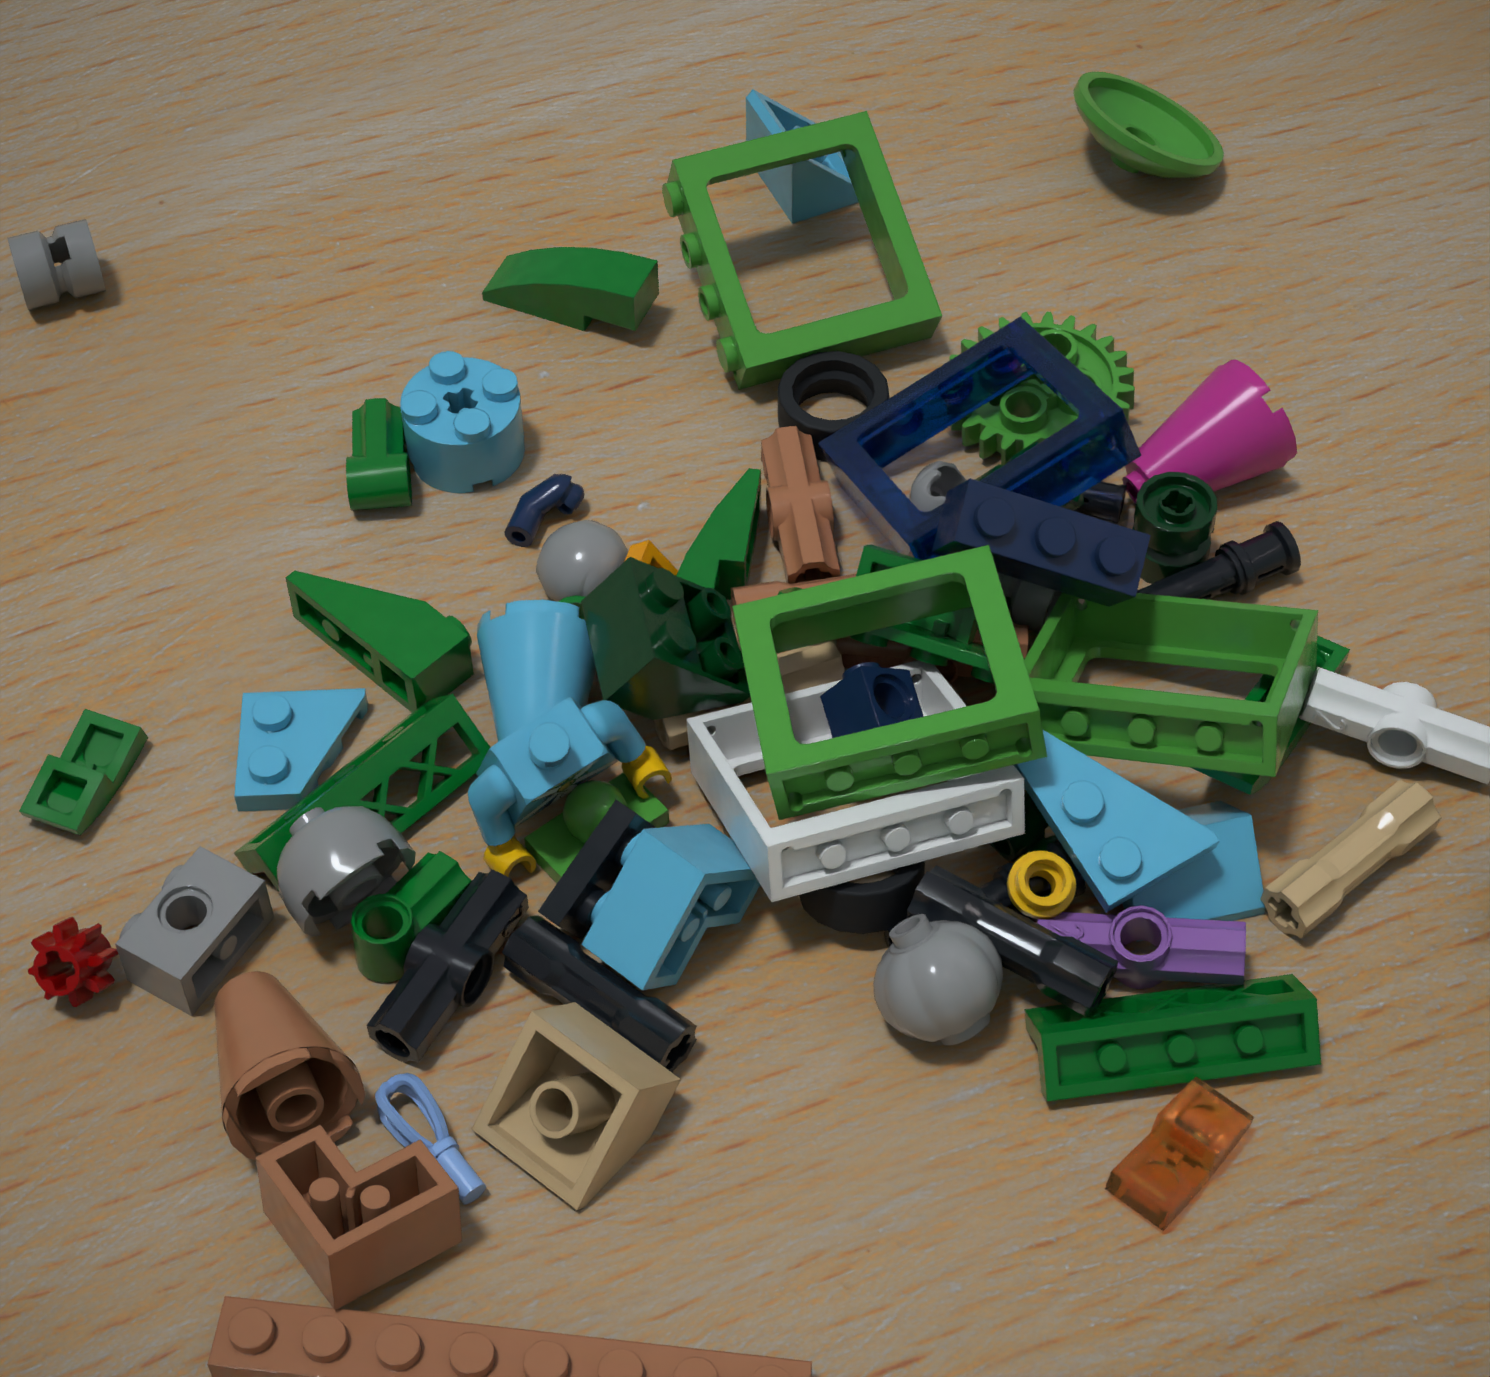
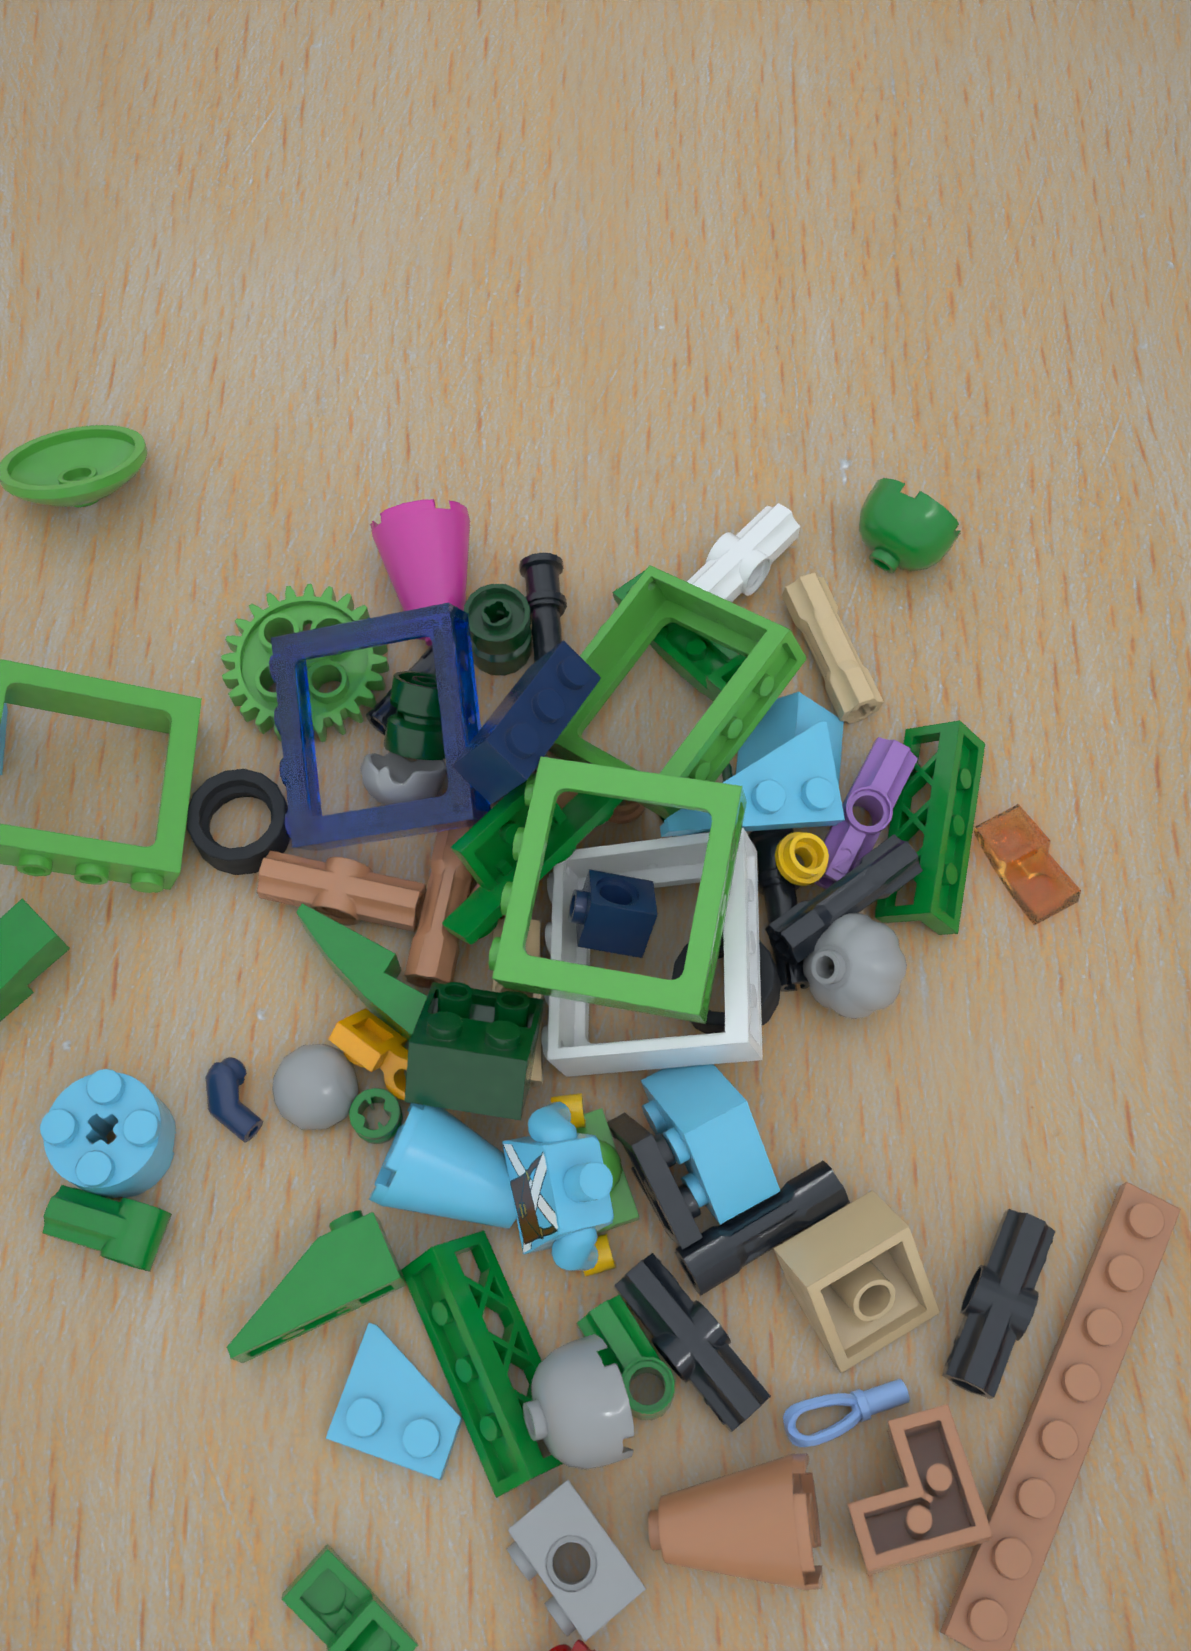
camera: 70 degrees left, 15 degrees up
(607, 1255) = (999, 1303): none -> black piece

